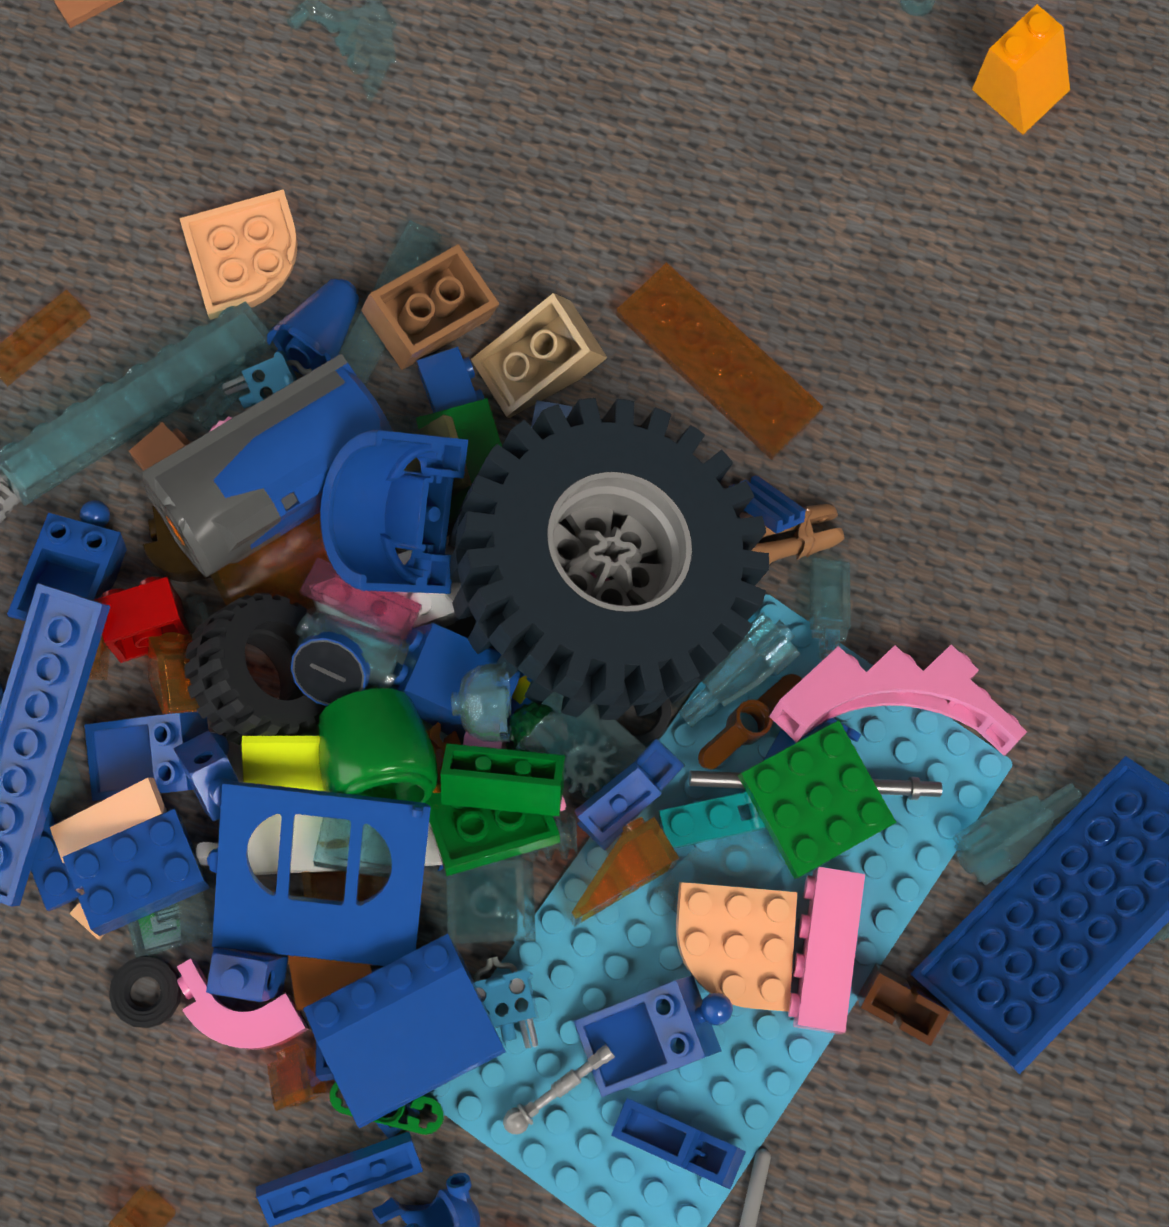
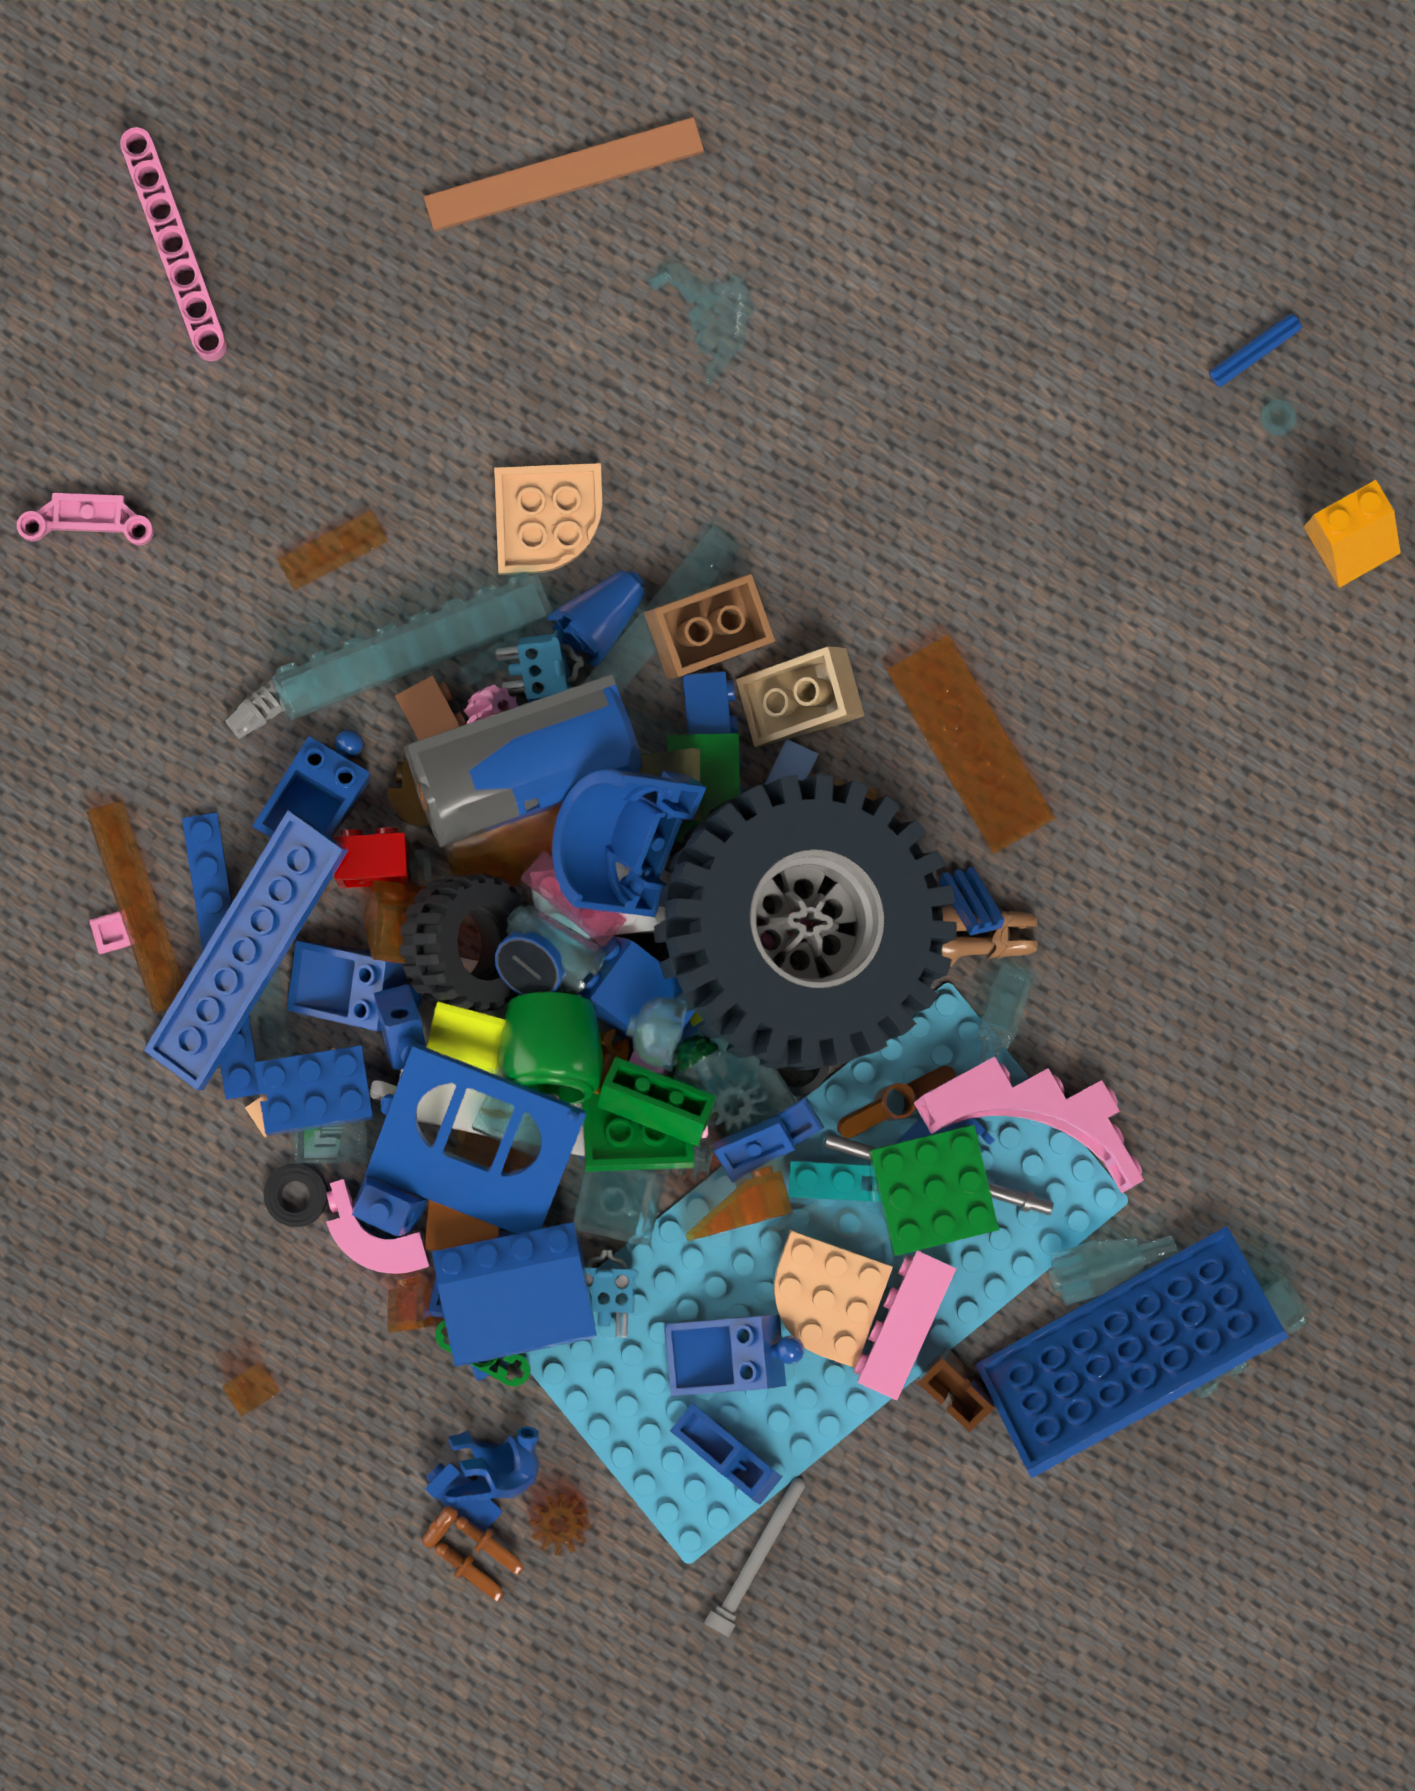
camera: 20 degrees right, 10 degrees up
(109, 817) = (299, 1036): light nougat tile -> none
(338, 1179) = (426, 1402): blue plate -> none
(518, 1119) = (593, 1394): light grey piece -> none
(750, 663) = (924, 1044): clear light blue piece -> none

